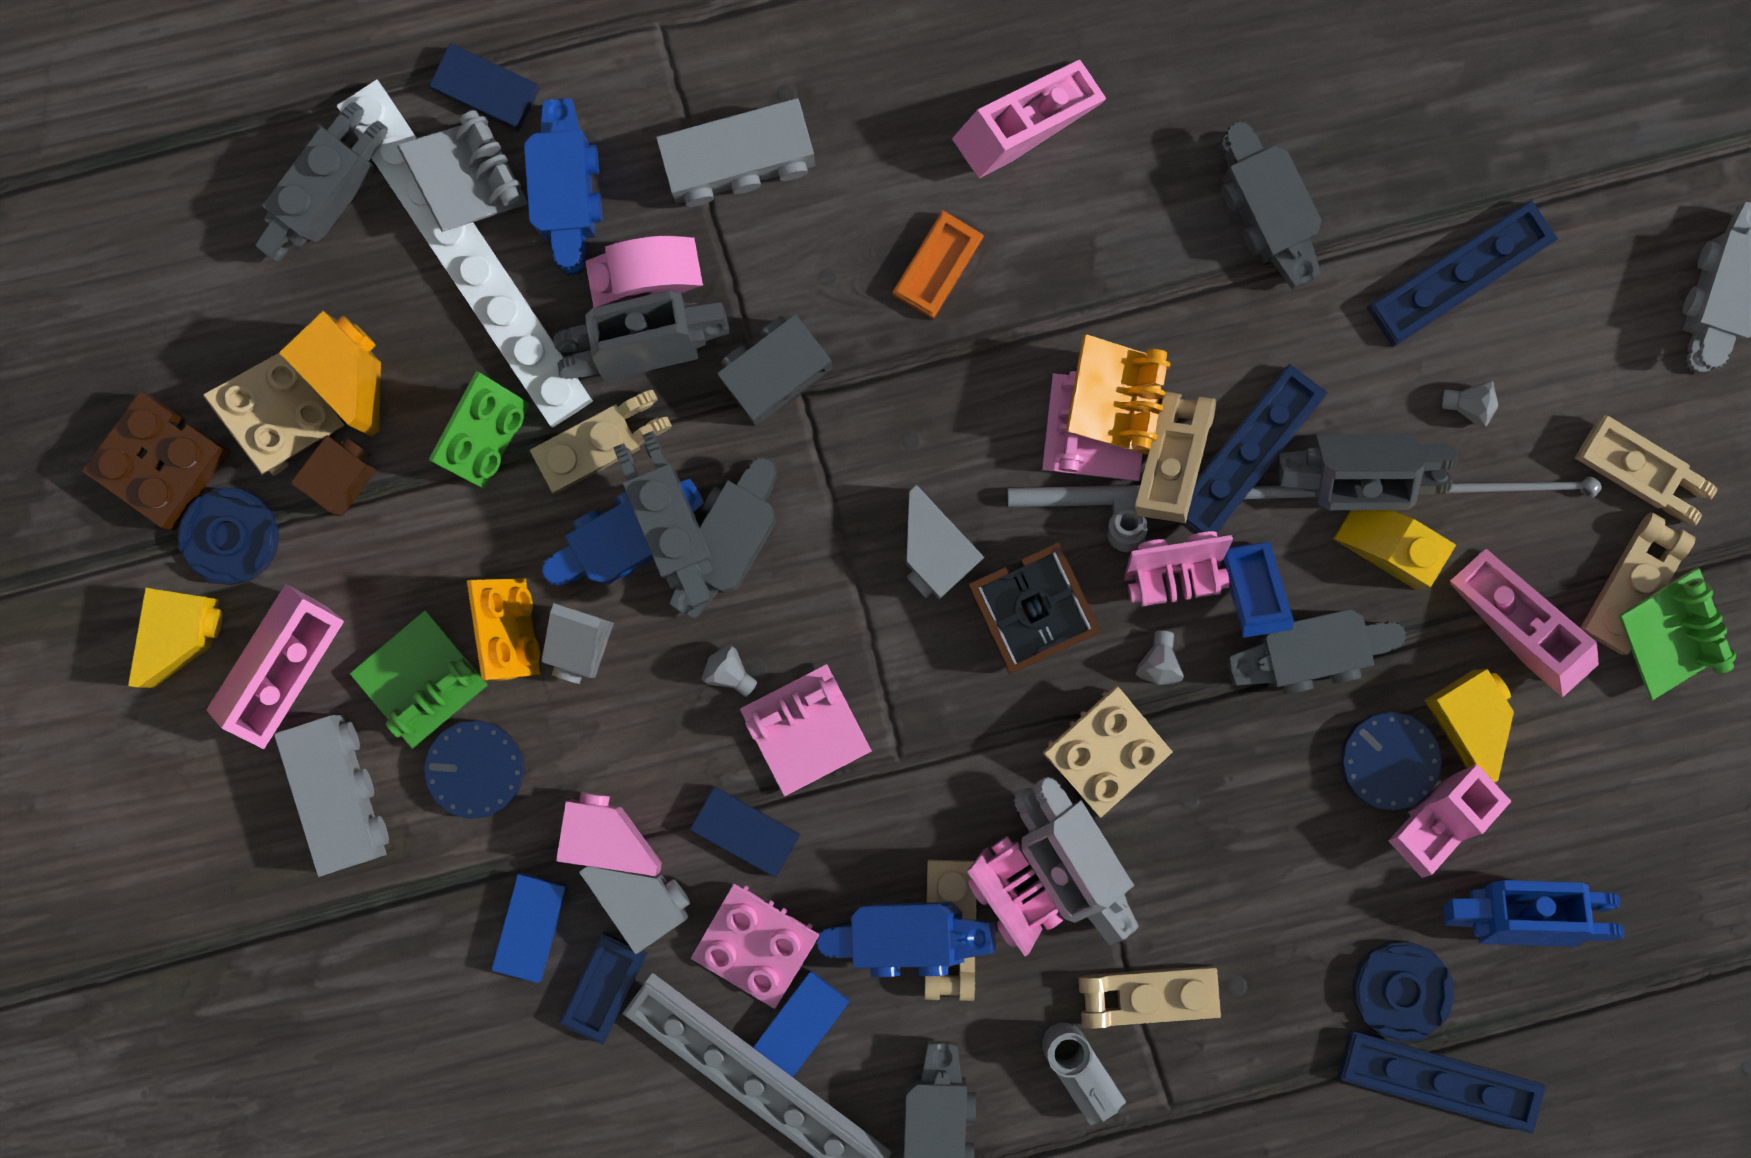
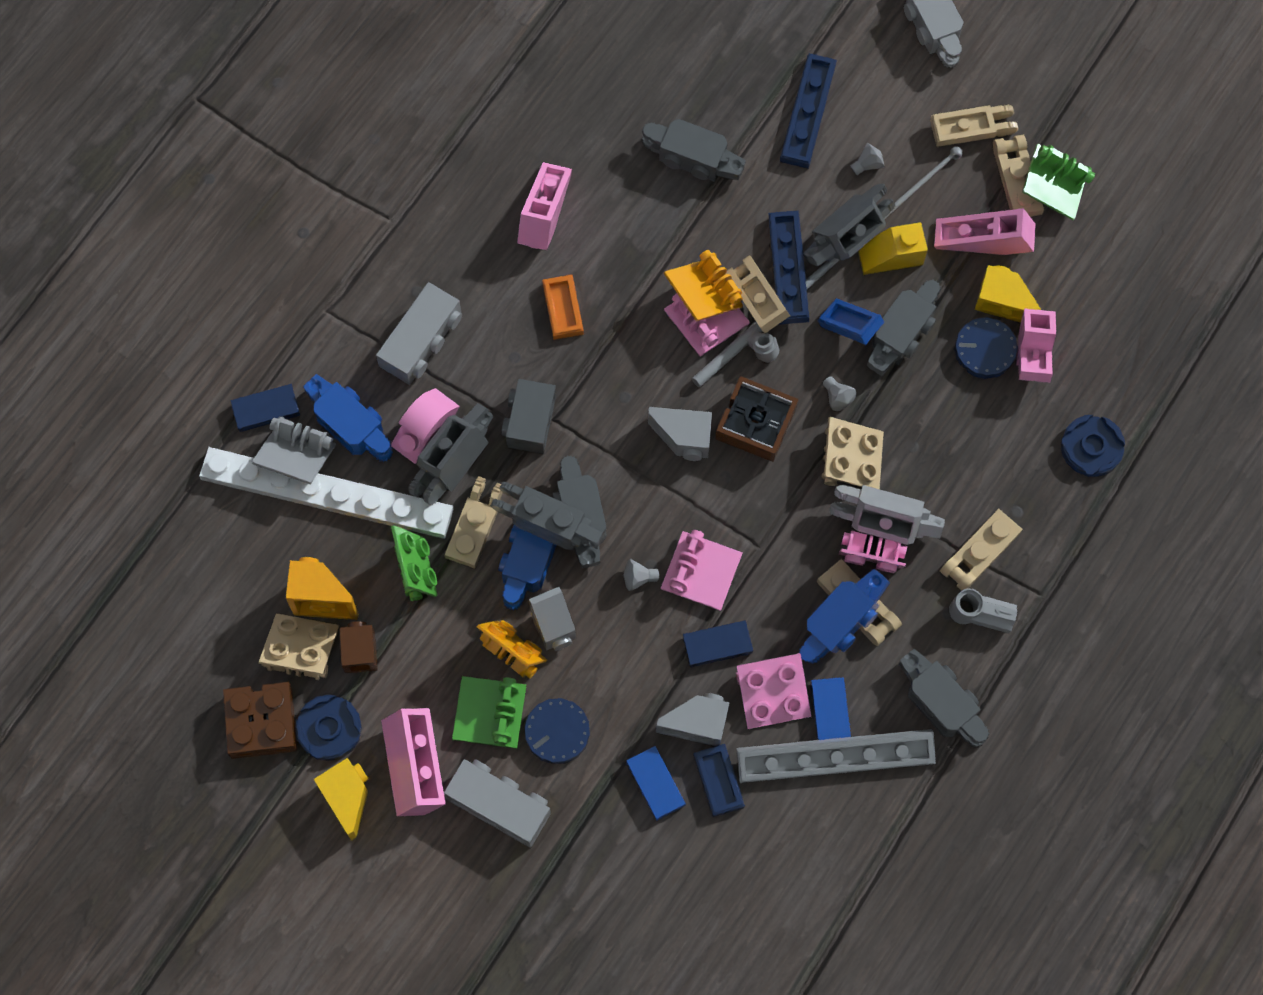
camera: 45 degrees left, 15 degrees down
(320, 184) = (226, 516): dark grey hinge -> none
(604, 837) = (649, 702): bright pink slope -> none
(1157, 558) = (805, 340): bright pink hinge -> none
(1441, 1081) = (1149, 470): dark blue tile -> none
(1534, 914) = (1115, 354): blue hinge -> none

